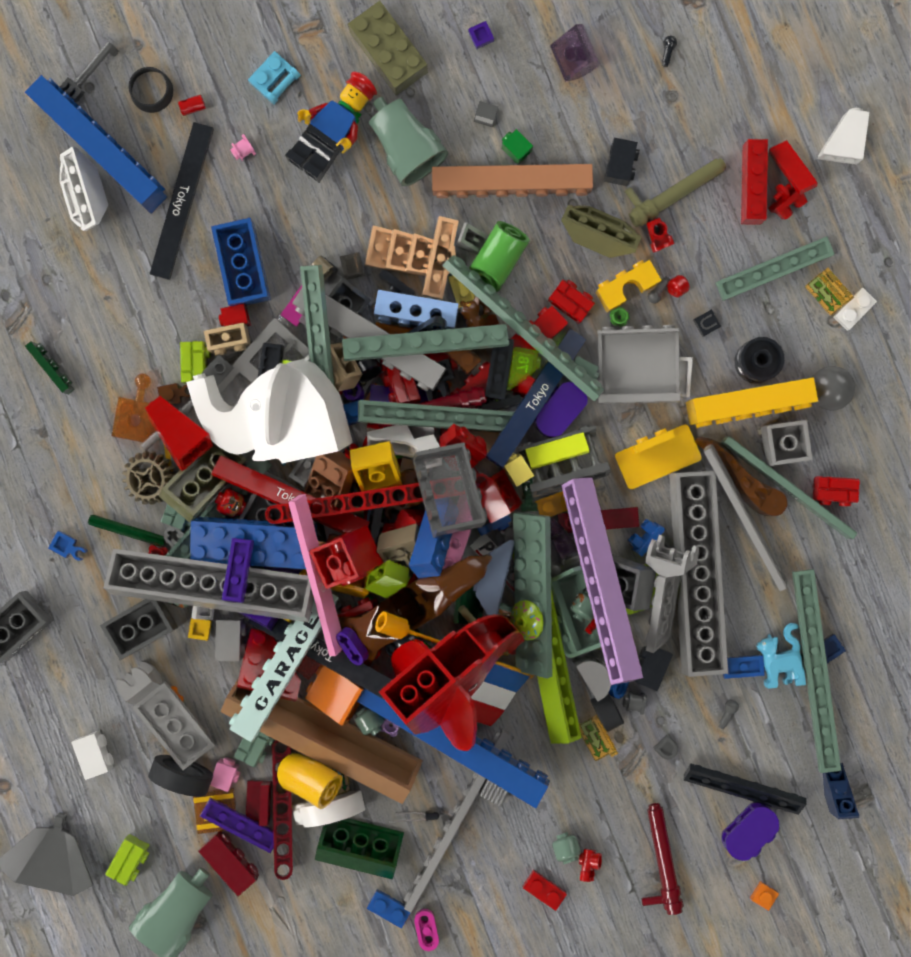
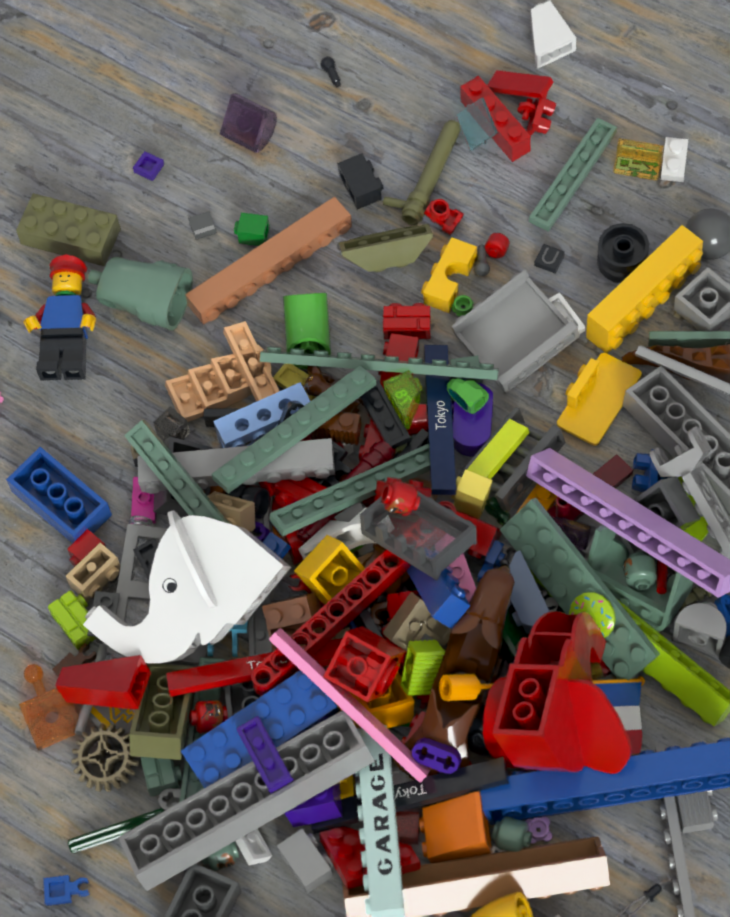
camera: 25 degrees left, 25 degrees down
(199, 629) = (265, 873): yellow plate -> none
(451, 460) = (400, 498): none -> red head
(471, 239) = (269, 331): light grey slope -> none
(567, 394) = (467, 394): none -> bright green rock
(736, 178) = (476, 124): none -> clear light blue piece

